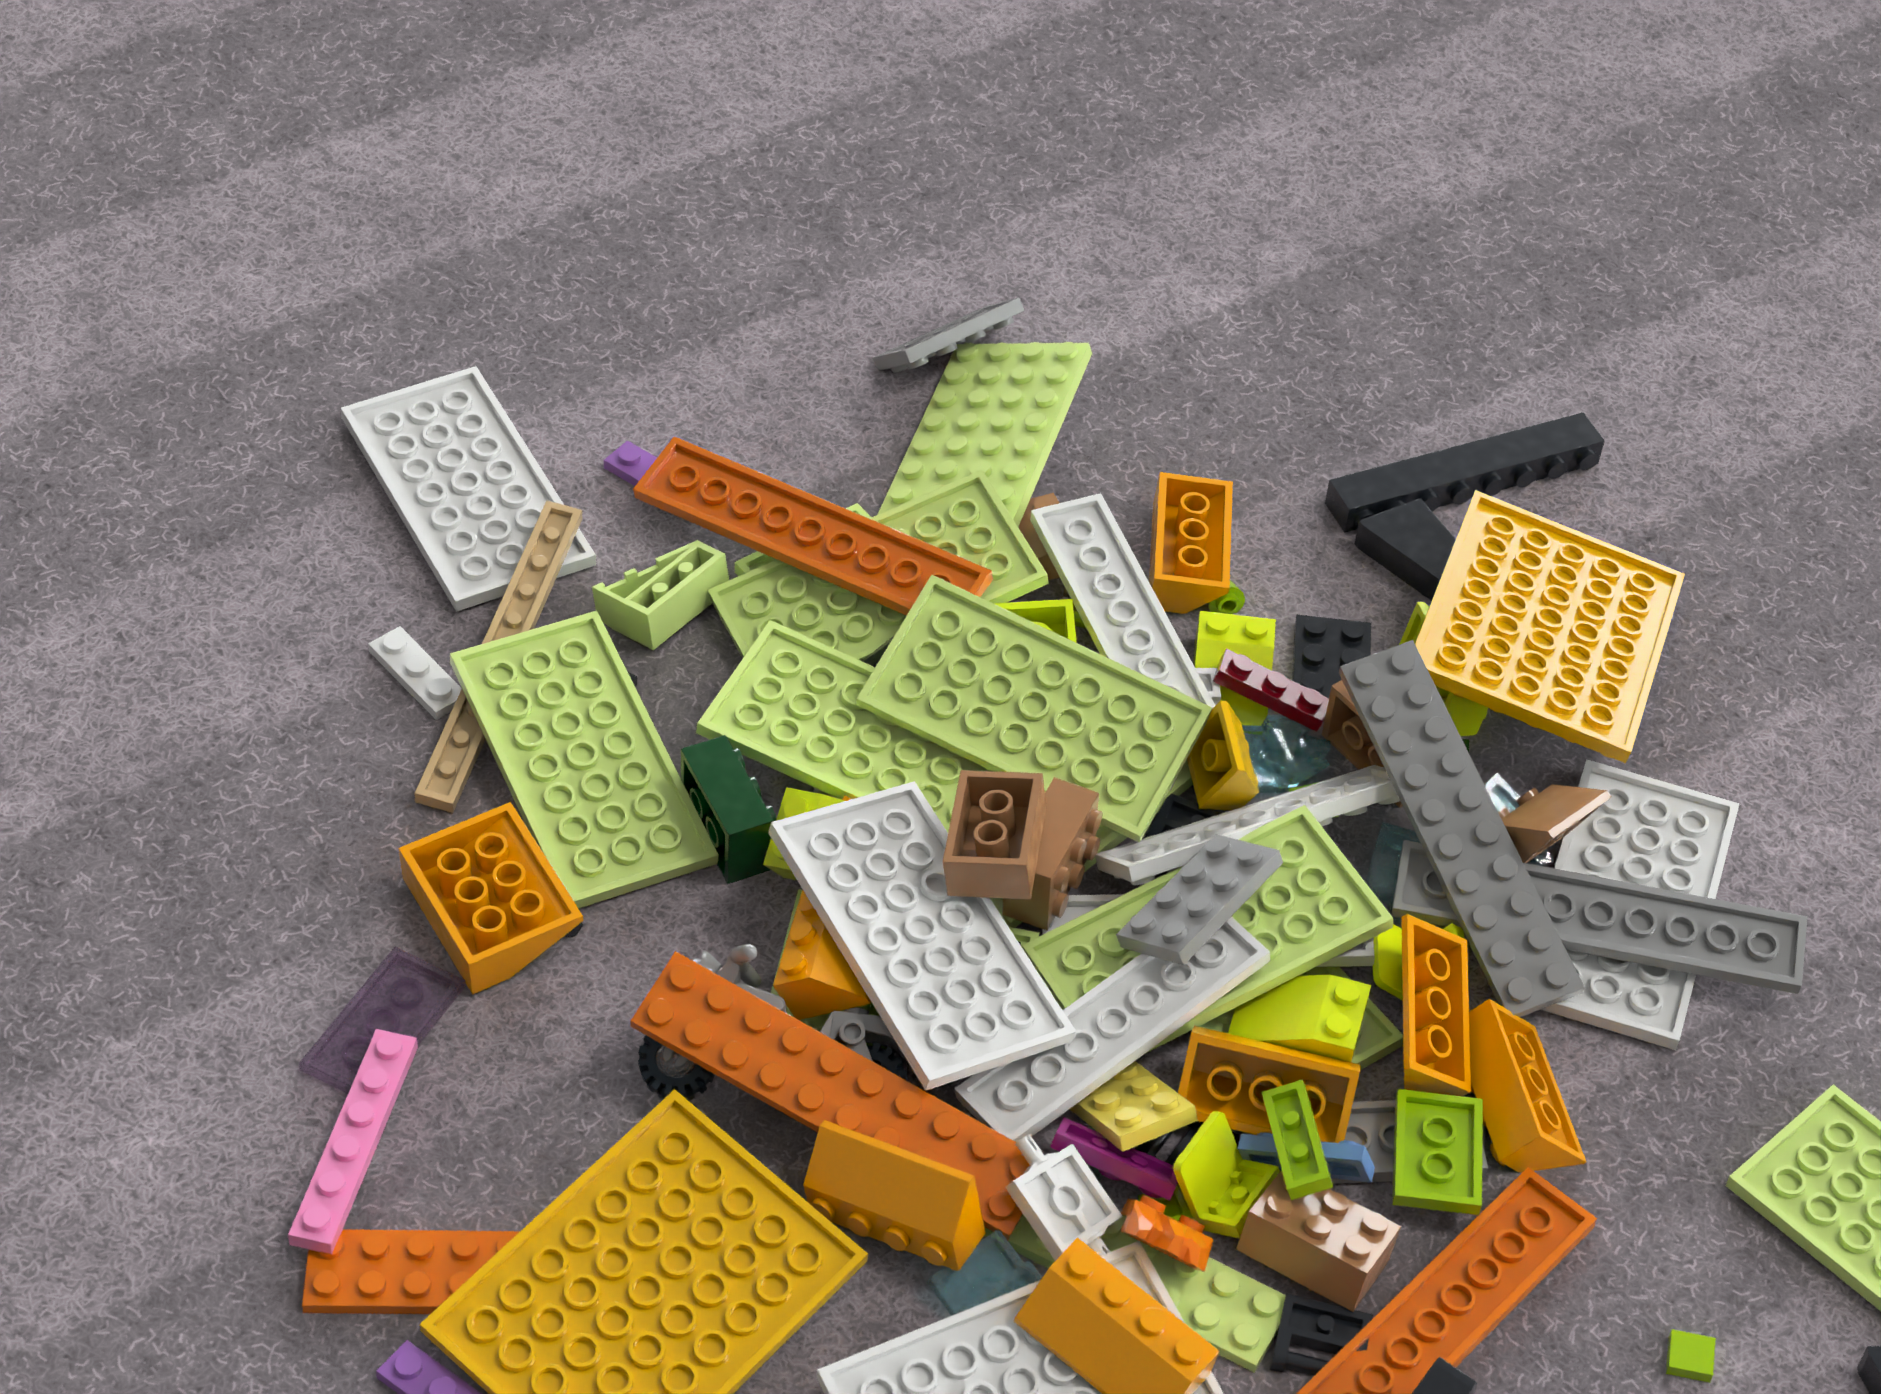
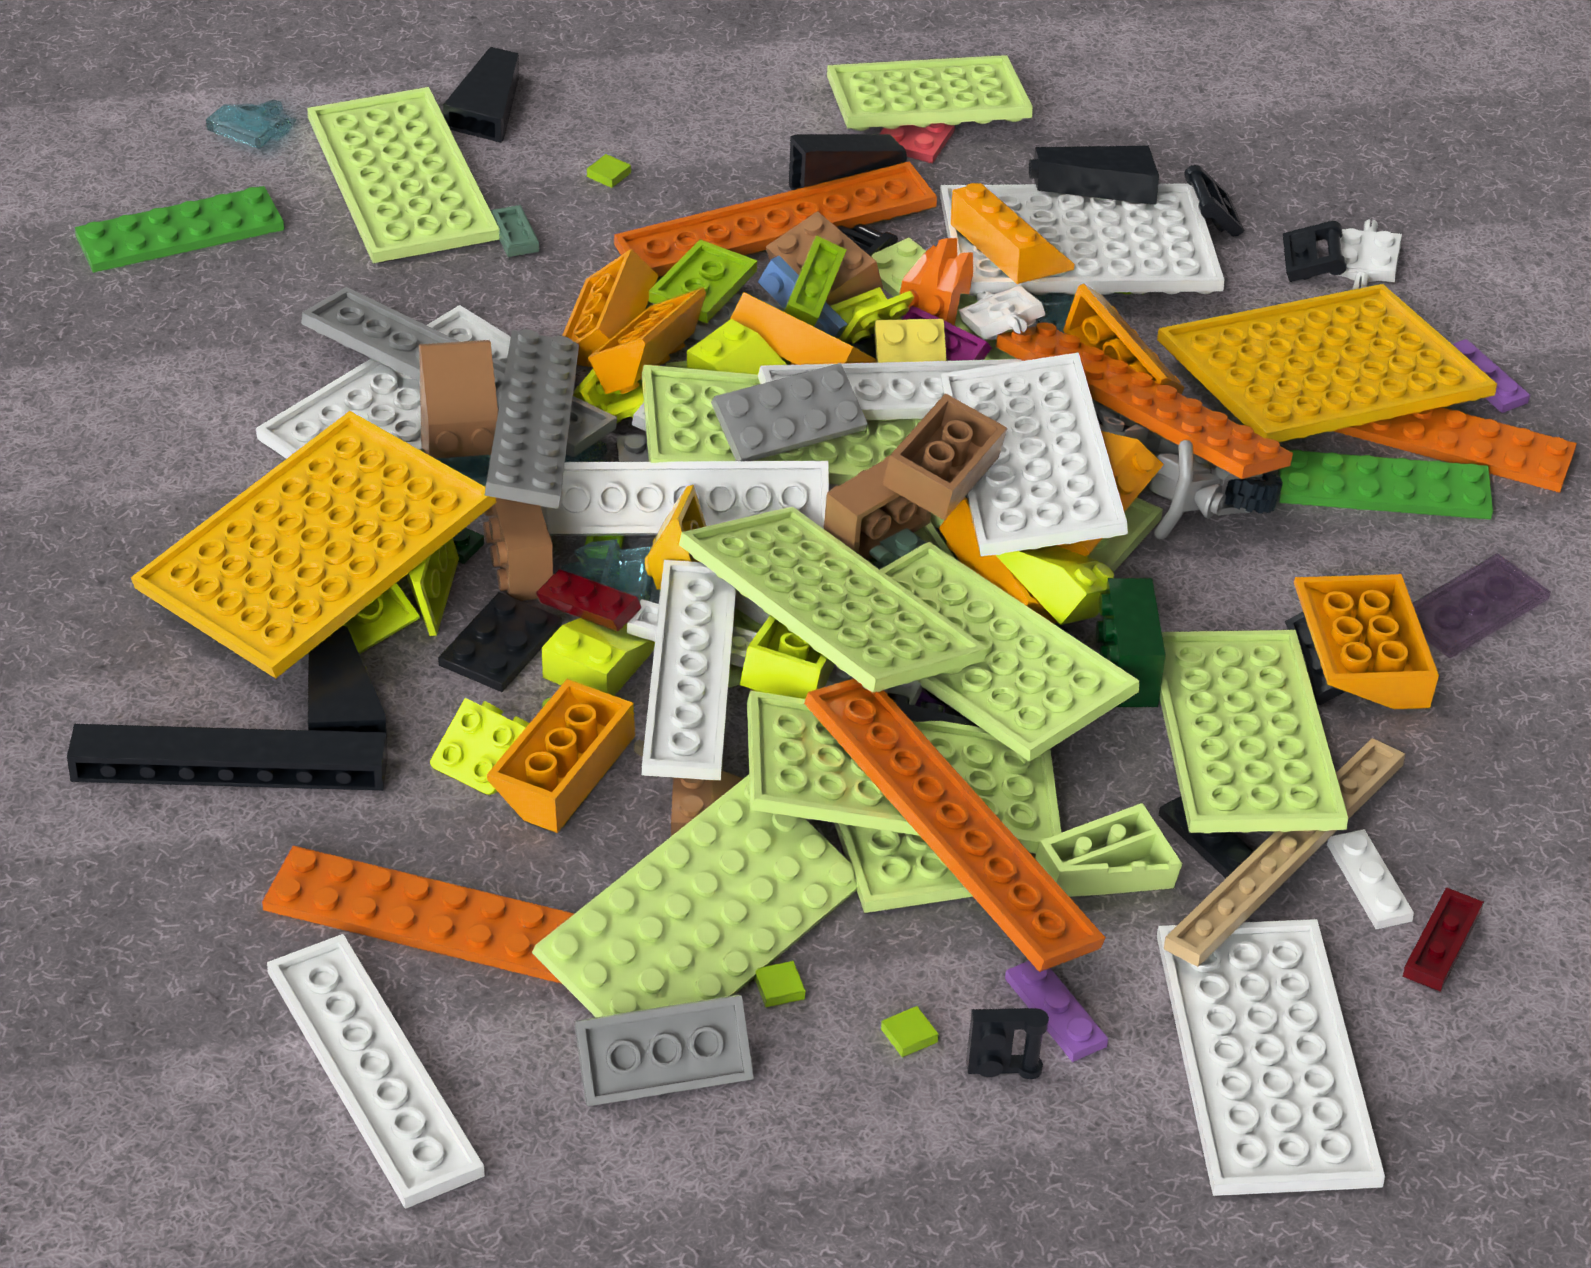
camera: 155 degrees left, 5 degrees down
(335, 627) = (1443, 939): none -> dark red plate
(353, 1142) = (1517, 518): bright pink plate -> none
(506, 1166) = (1387, 484): none -> bright green plate
(693, 403) = (992, 1041): none -> black plate
(769, 427) = (909, 1031): none -> lime tile
(892, 434) = (779, 984): none -> lime tile
(1162, 285) = (375, 1071): none -> white plate
(1206, 409) = (413, 911): none -> orange plate
(1266, 555) = (476, 743): none -> neon yellow bracket
(1716, 1195) = (515, 231): none -> sand green plate

